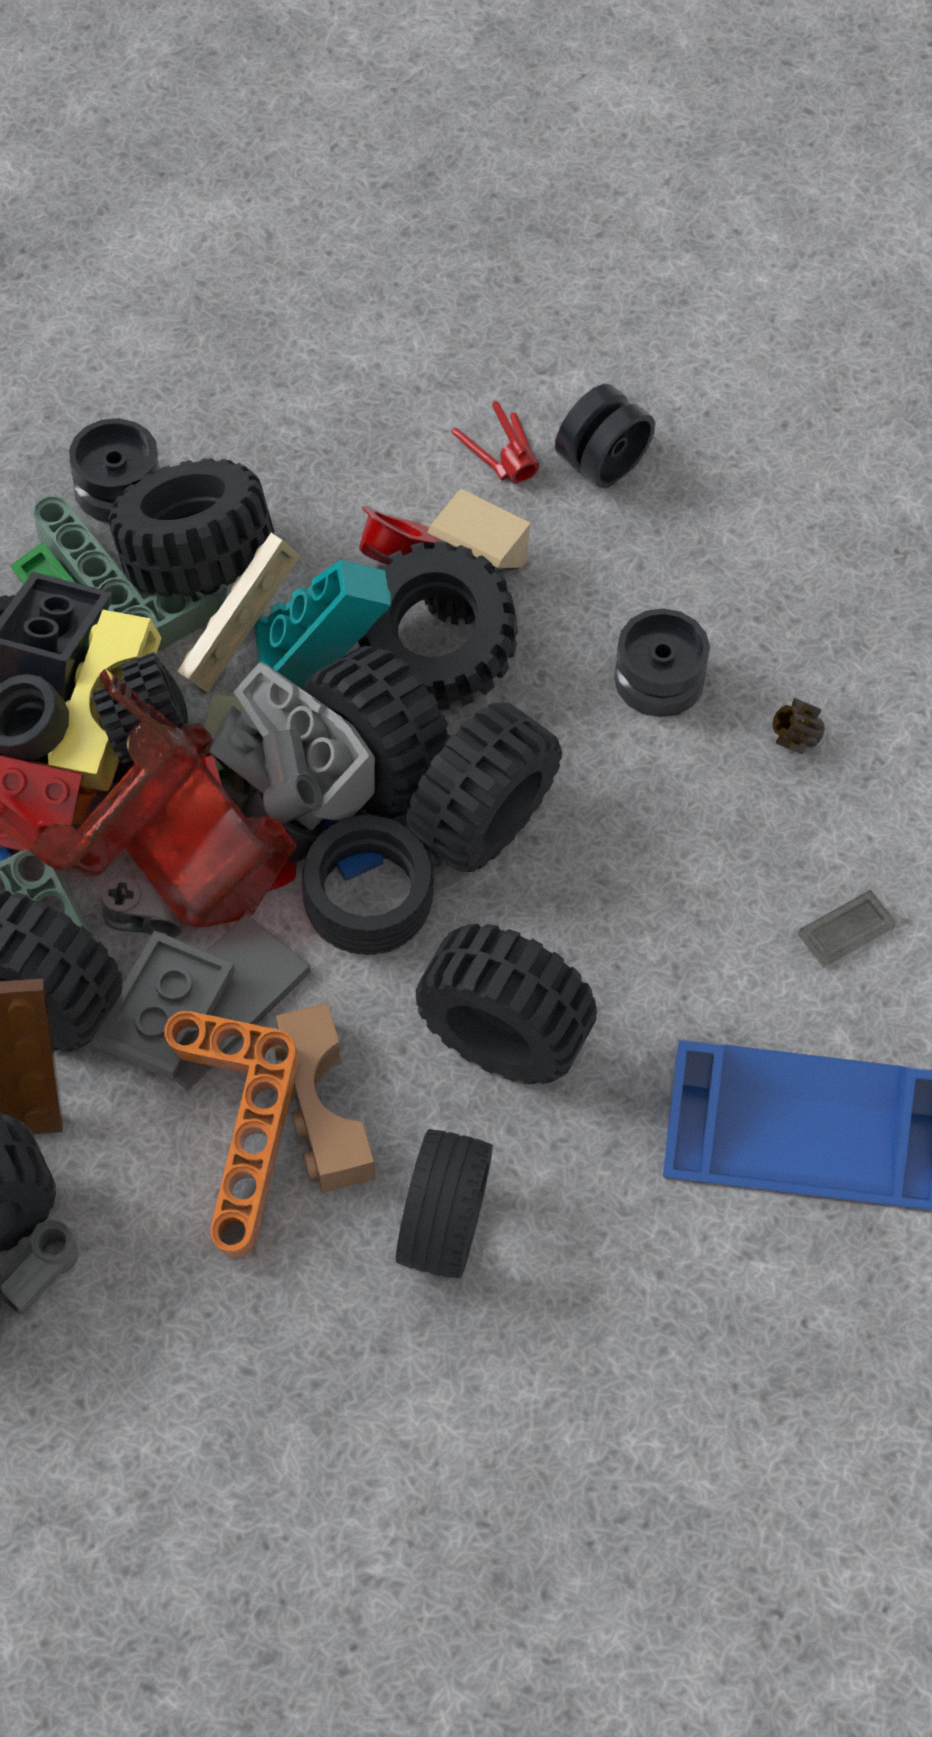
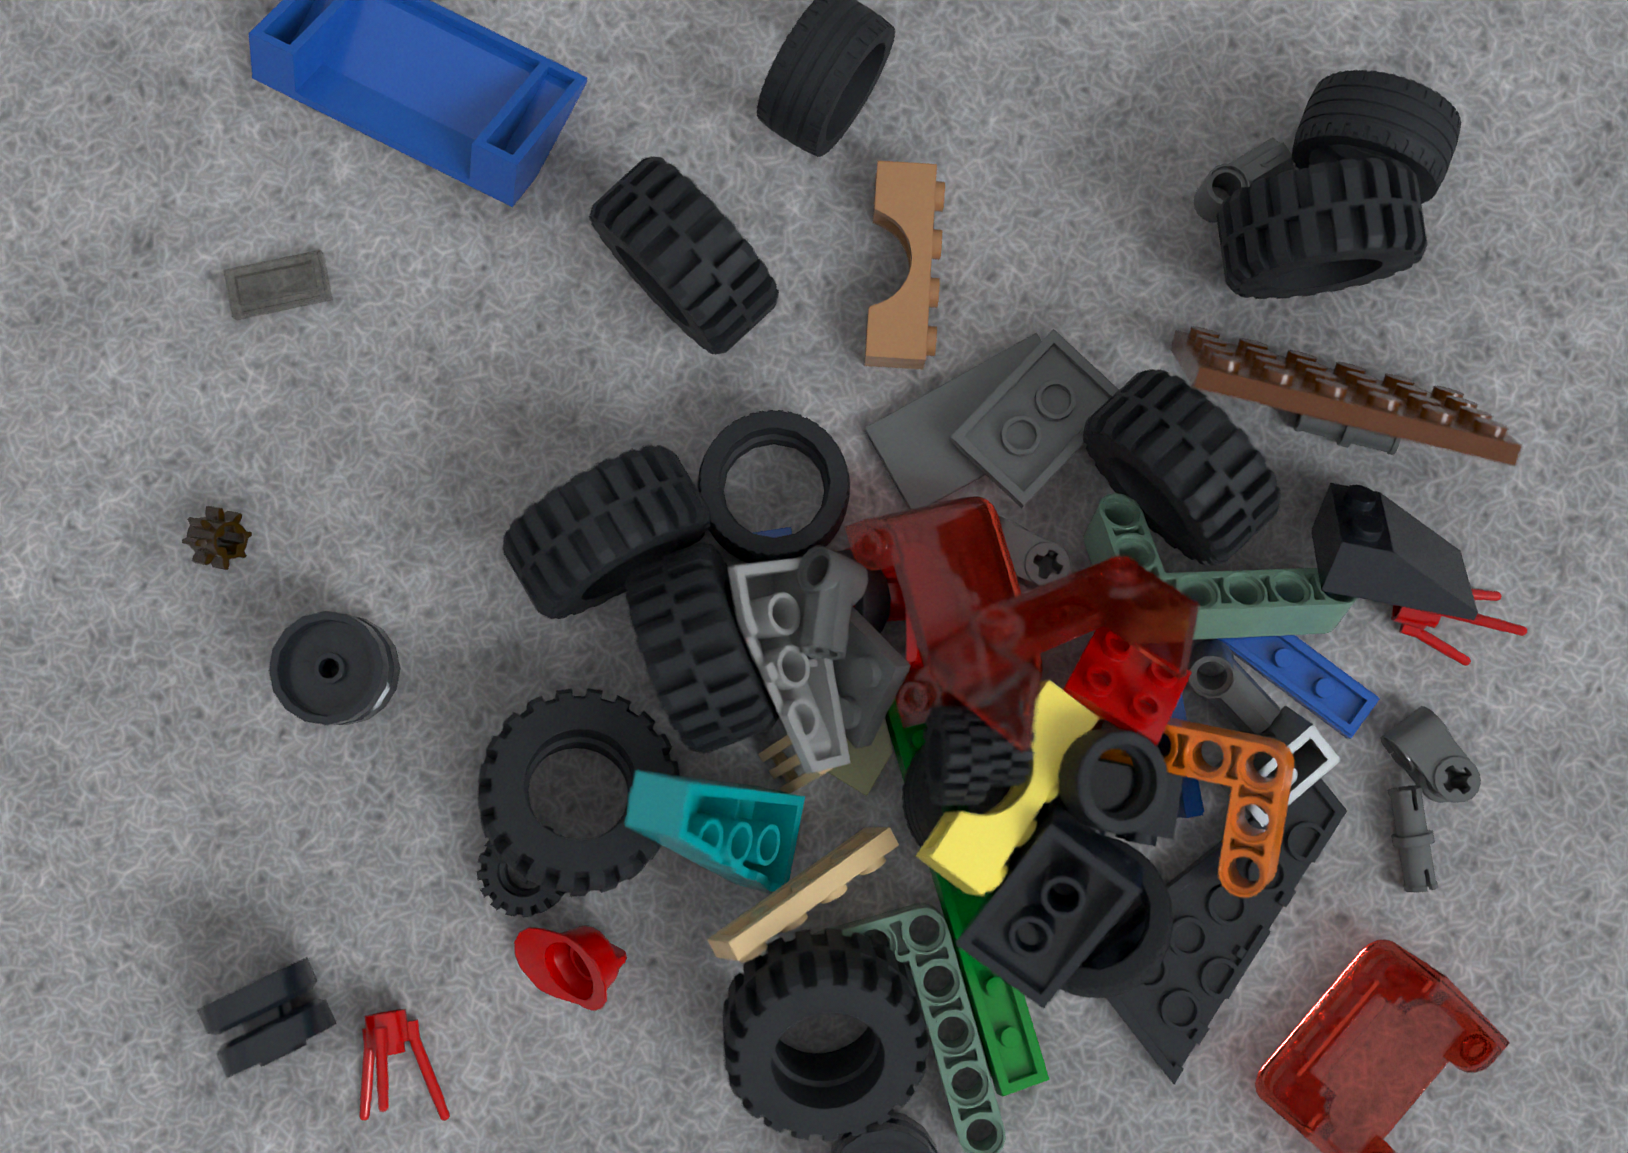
camera: 160 degrees left, 25 degrees up
(250, 1118) = (985, 239): orange beam -> none
(484, 529) = (476, 914): tan slope -> none

